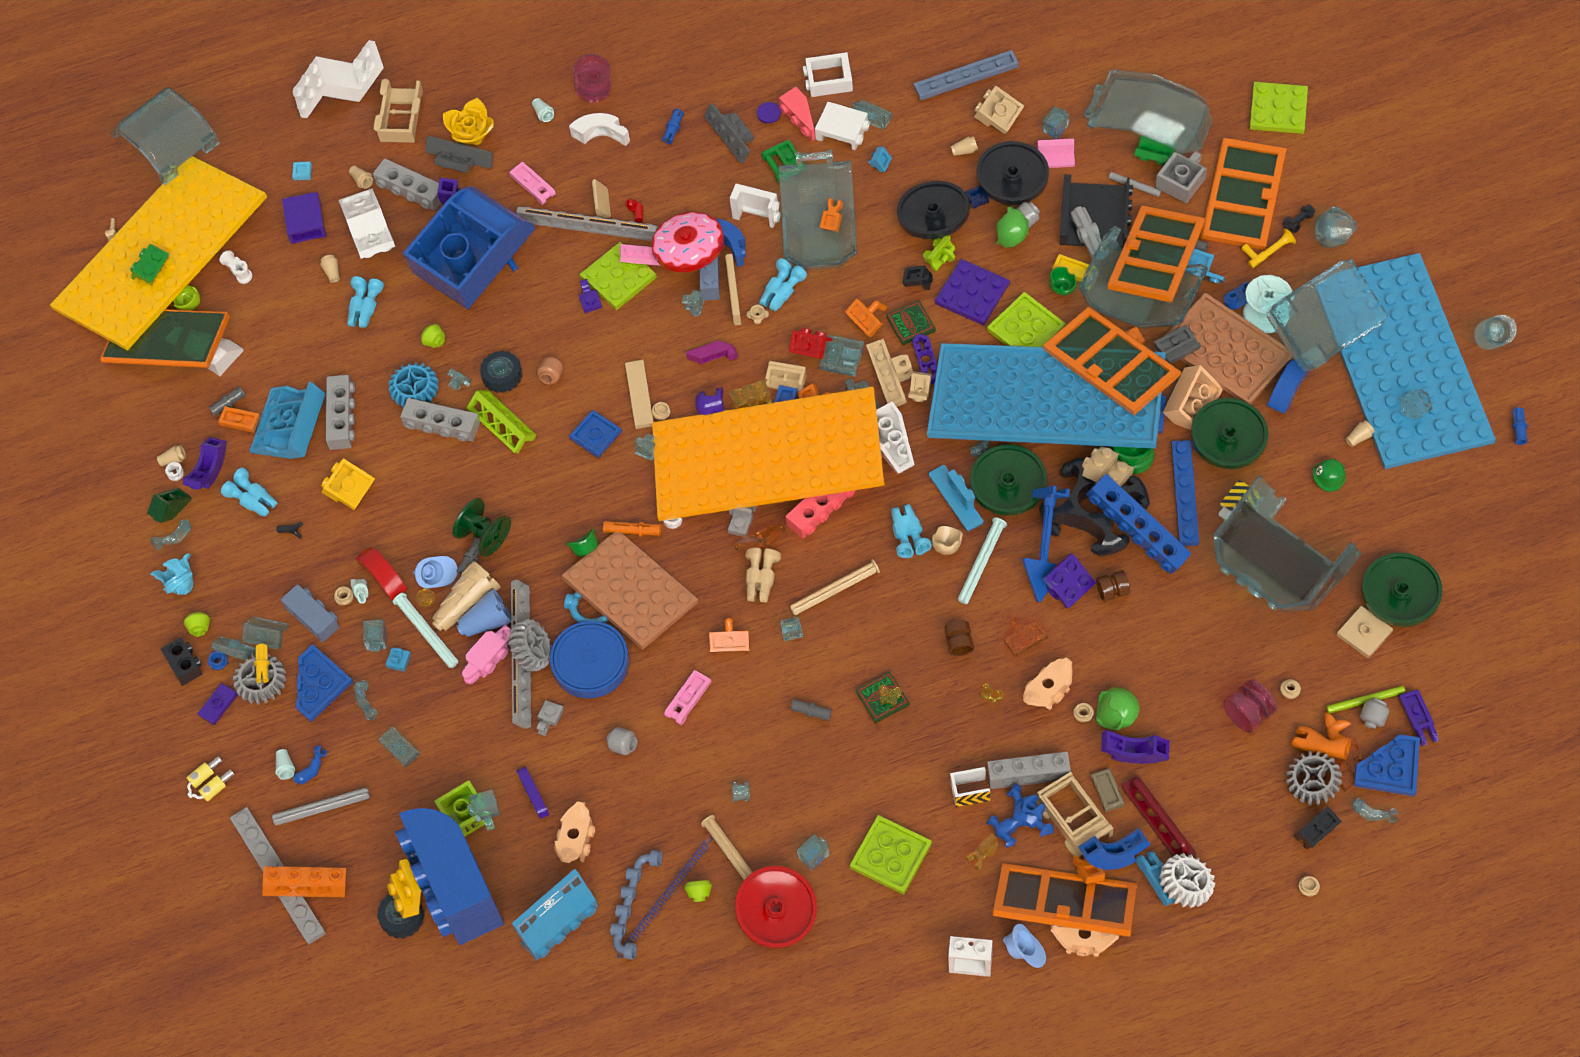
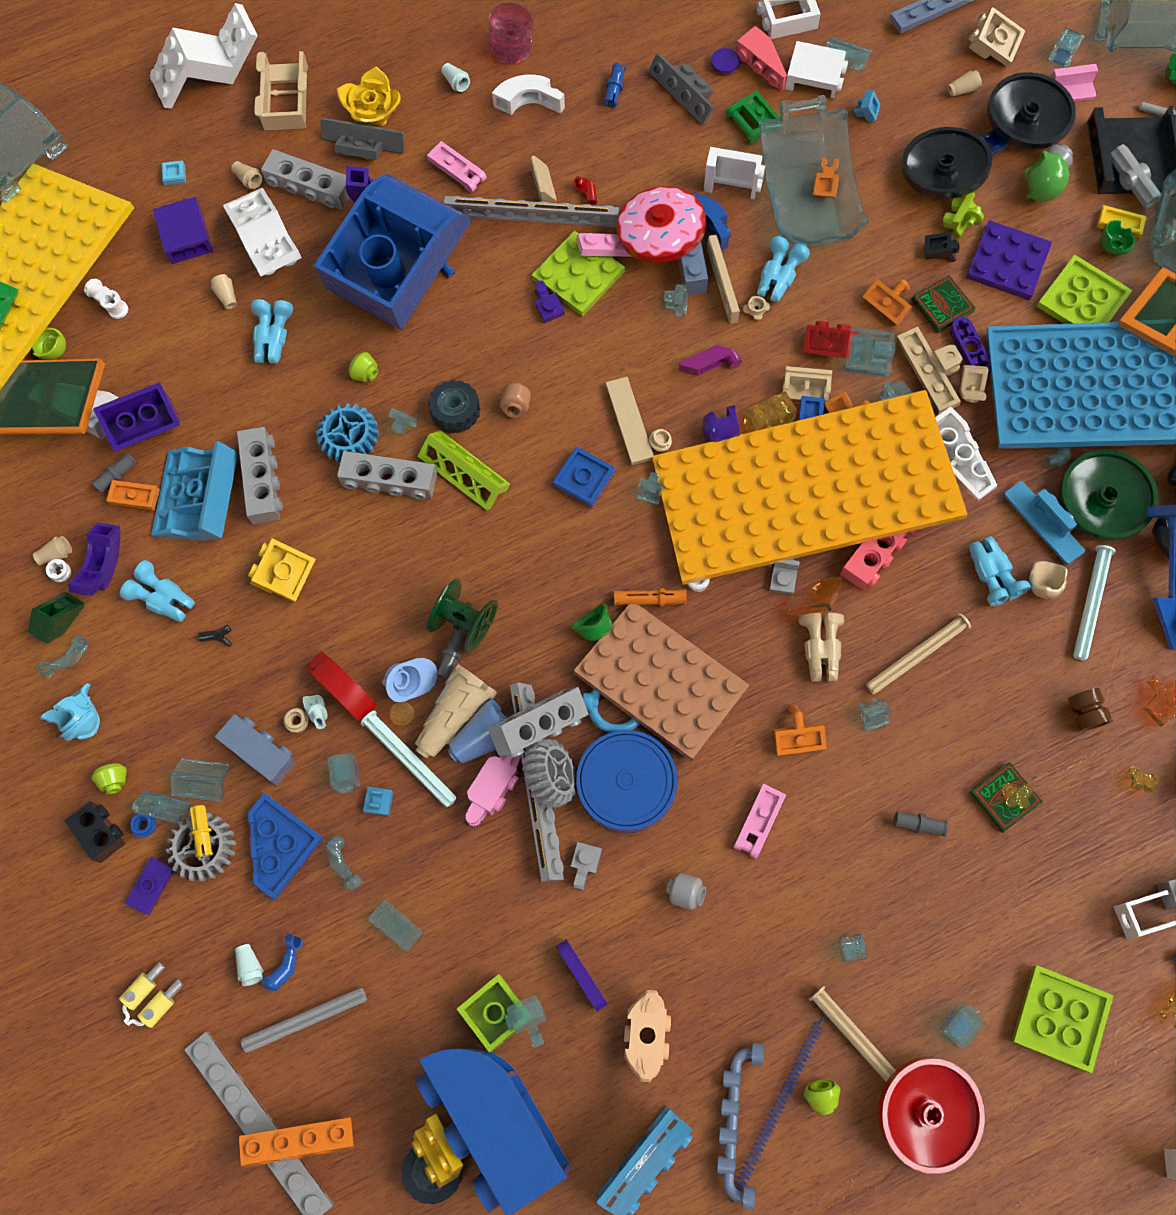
camera: 10 degrees left, 10 degrees up
(250, 358) = (137, 416): none -> dark purple slope
(553, 597) = (506, 732): none -> light grey brick

